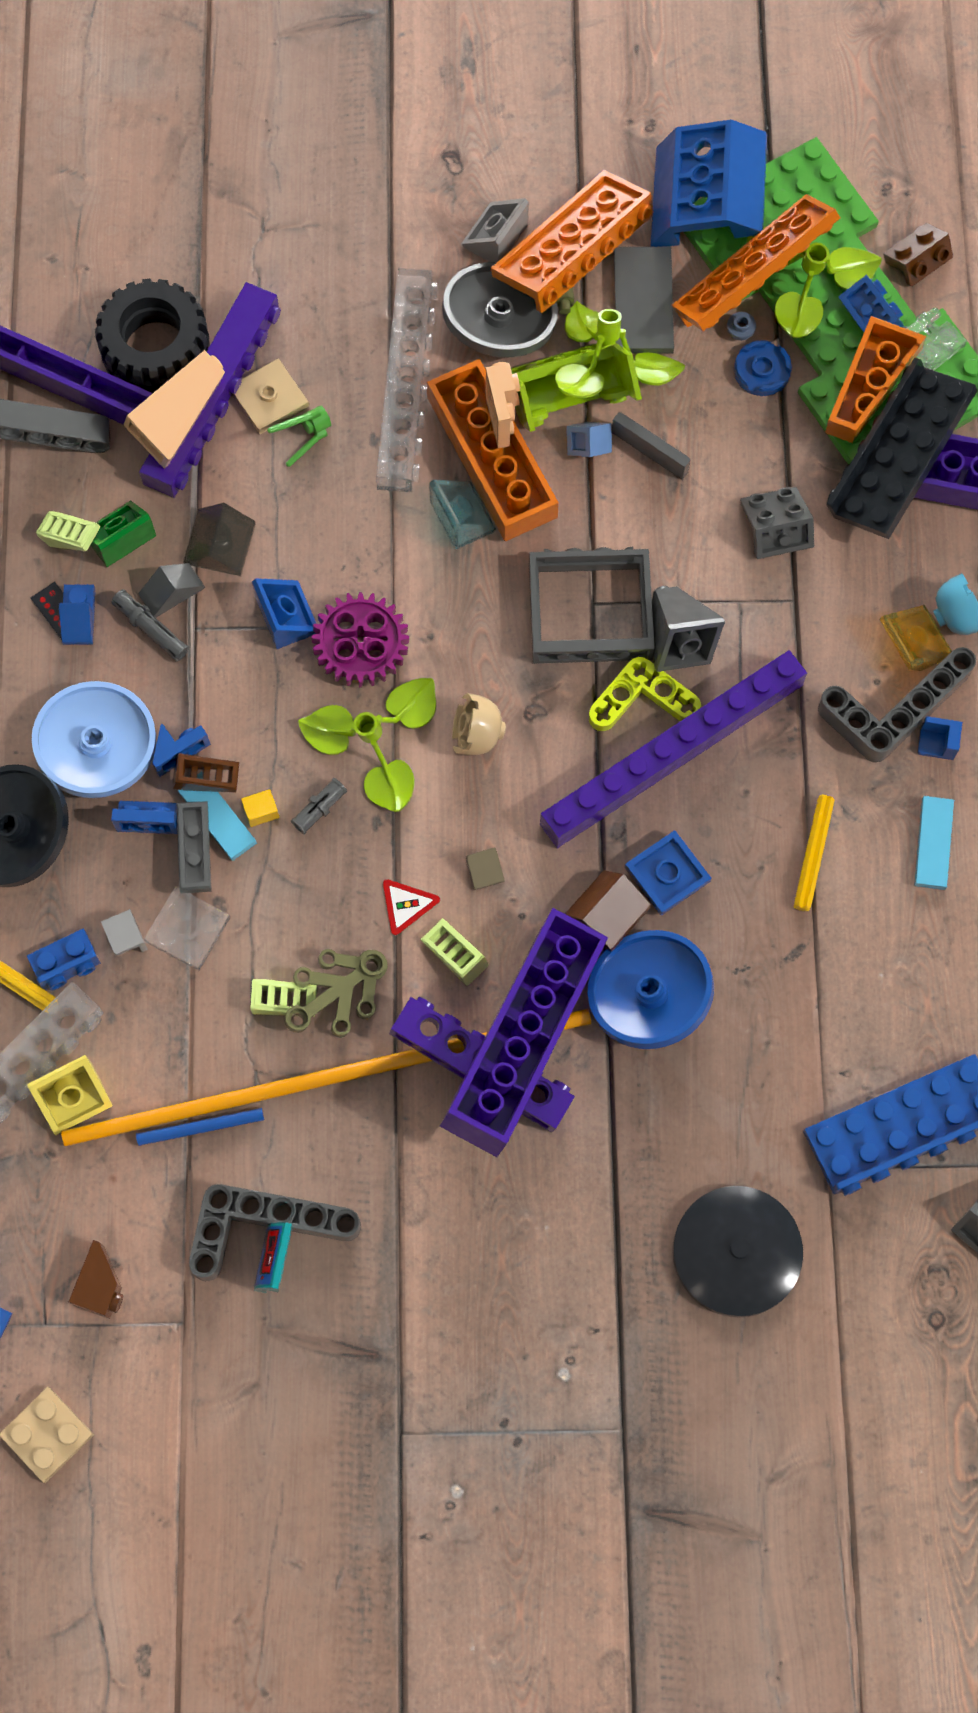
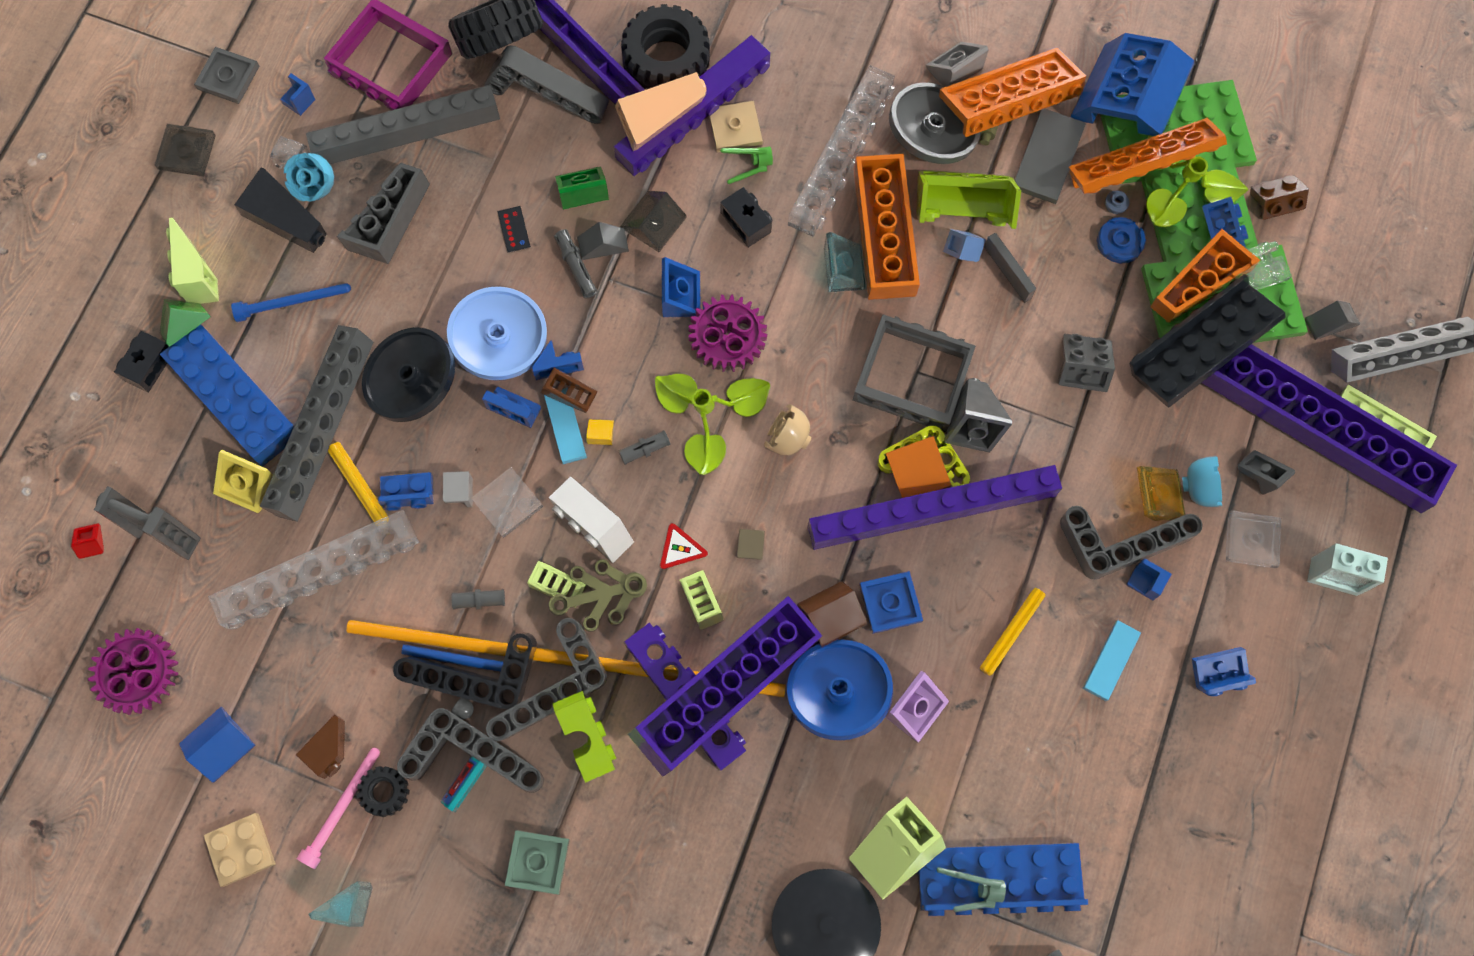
camera: 20 degrees right, 0 degrees up
(63, 530) = (542, 171): yellowish green slope -> none
(70, 1094) = (366, 595): light yellow slope -> none
(77, 614) = (525, 236): blue slope -> none
(132, 1405) = (311, 854): none -> bright pink piece
(193, 847) = (536, 443): dark grey tile -> none
(199, 1445) = (347, 907): none -> clear light blue slope
(200, 1316) = (367, 787): none -> black tyre
(201, 1049) = (478, 599): none -> dark grey pin
(234, 1141) = (472, 680): none -> black beam
(236, 1176) = (463, 708): none -> dark grey hinge
(293, 909) = (592, 519): none -> white wedge
(334, 509) = (746, 216): none -> black brick
(334, 1115) = (556, 691): none -> dark grey beam
(391, 1311) = (537, 862): none -> sand green plate
(408, 1170) = (576, 715): none -> lime arch
(501, 399) = (907, 190): light nougat plate -> none
(605, 327) = (1008, 164): lime plant -> none
(639, 711) = (918, 468): none -> orange slope
(743, 975) = (918, 707): none -> lavender slope
(782, 1135) = (897, 848): none -> yellowish green slope
(898, 1139) = (989, 889): none -> sand green plant

